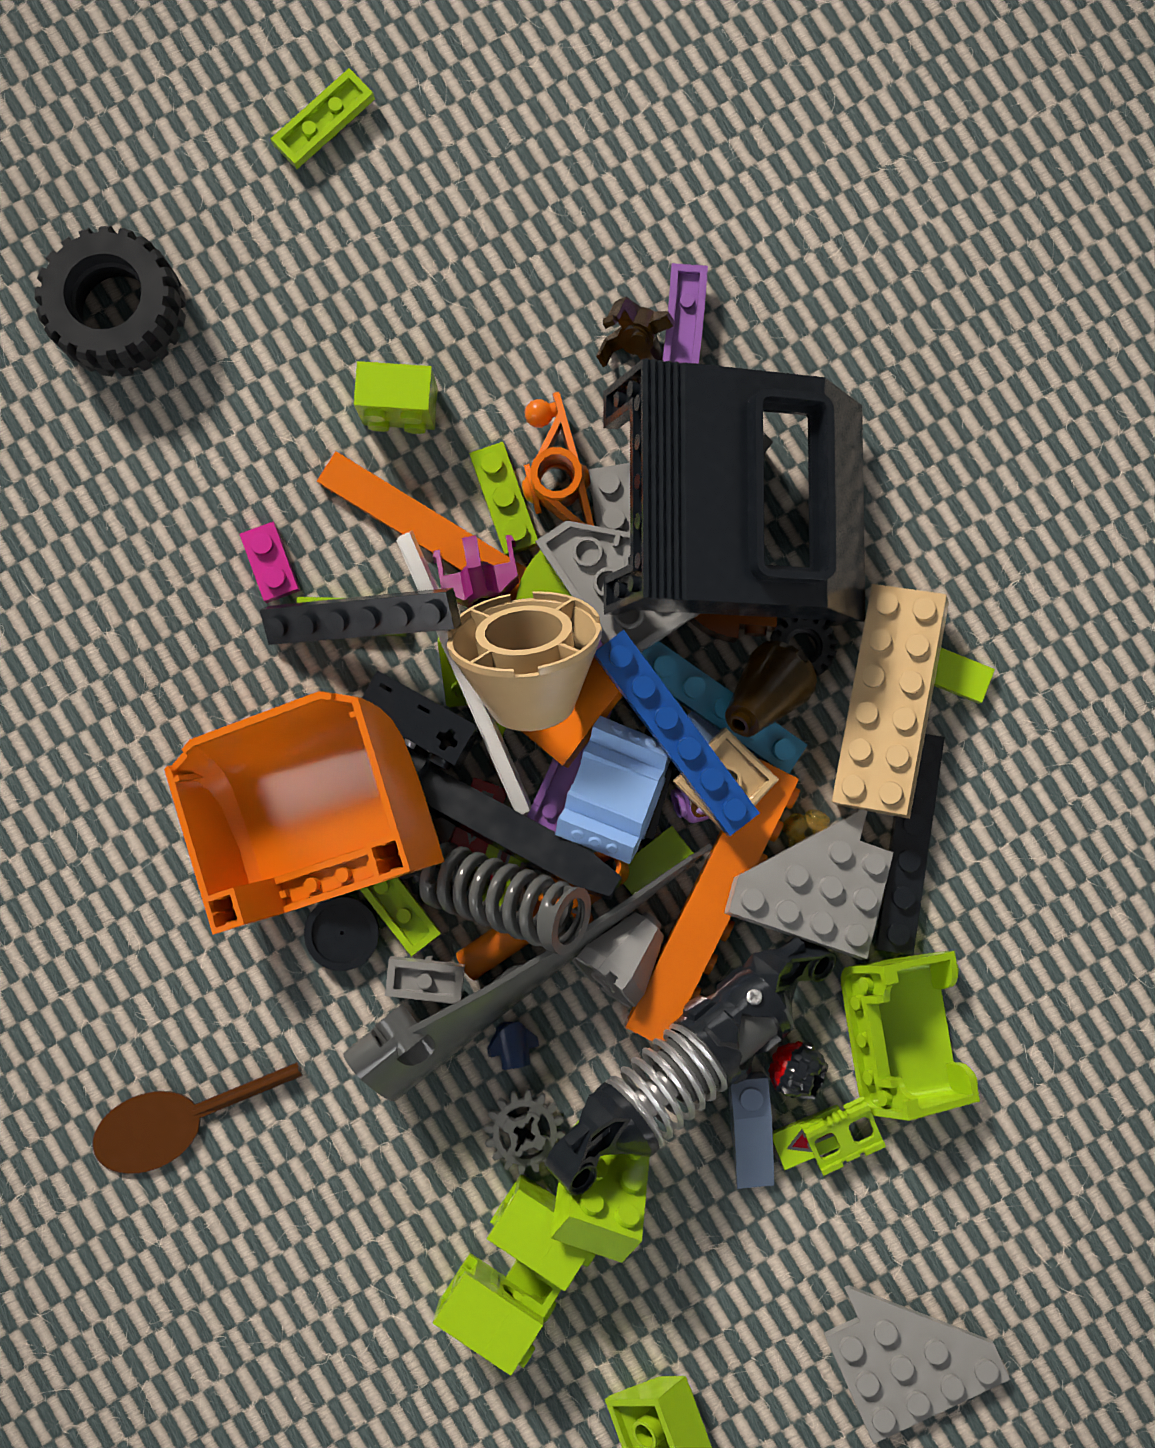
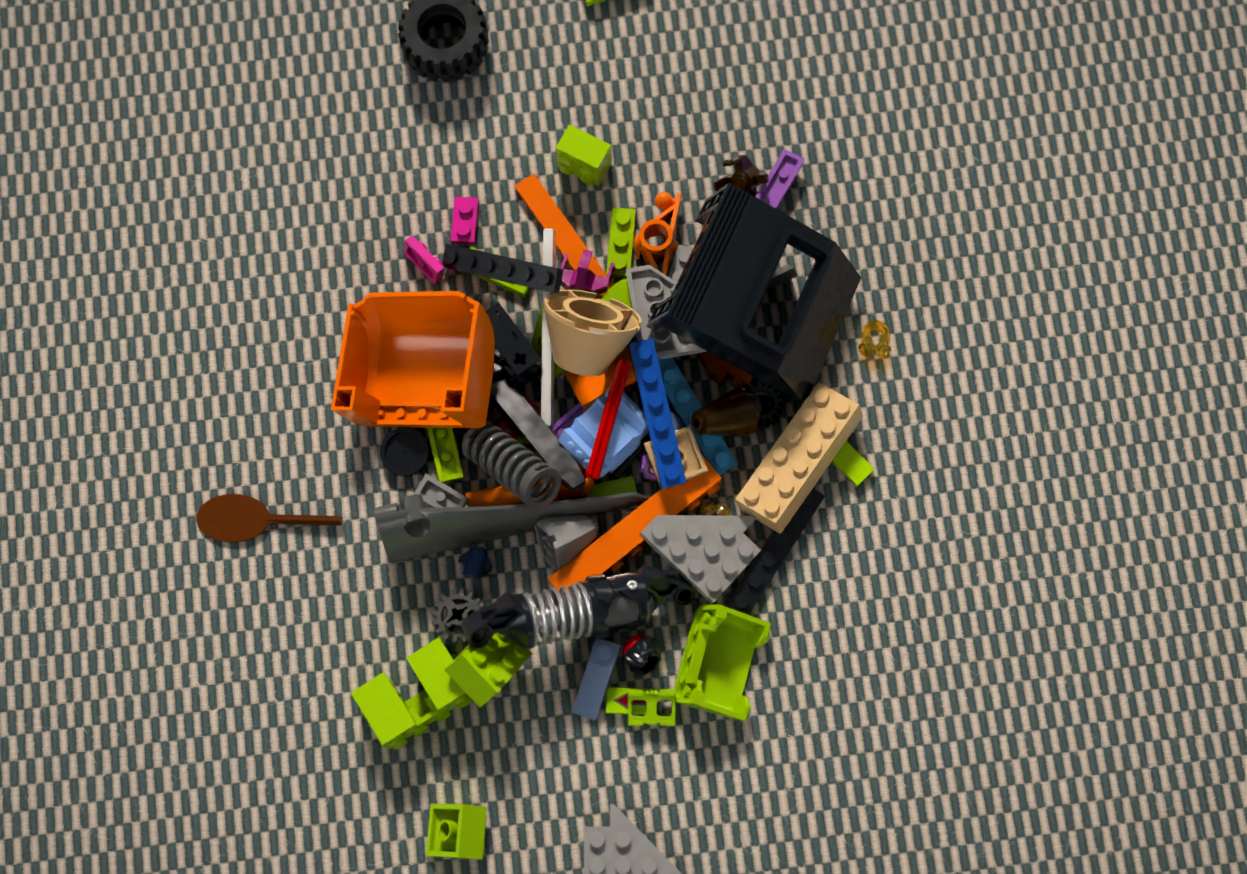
camera: 30 degrees right, 10 degrees down
(228, 641) = (423, 259): none -> dark pink plate
(613, 775) = (608, 419): none -> red axle
(910, 501) = (867, 348): none -> clear yellow piece

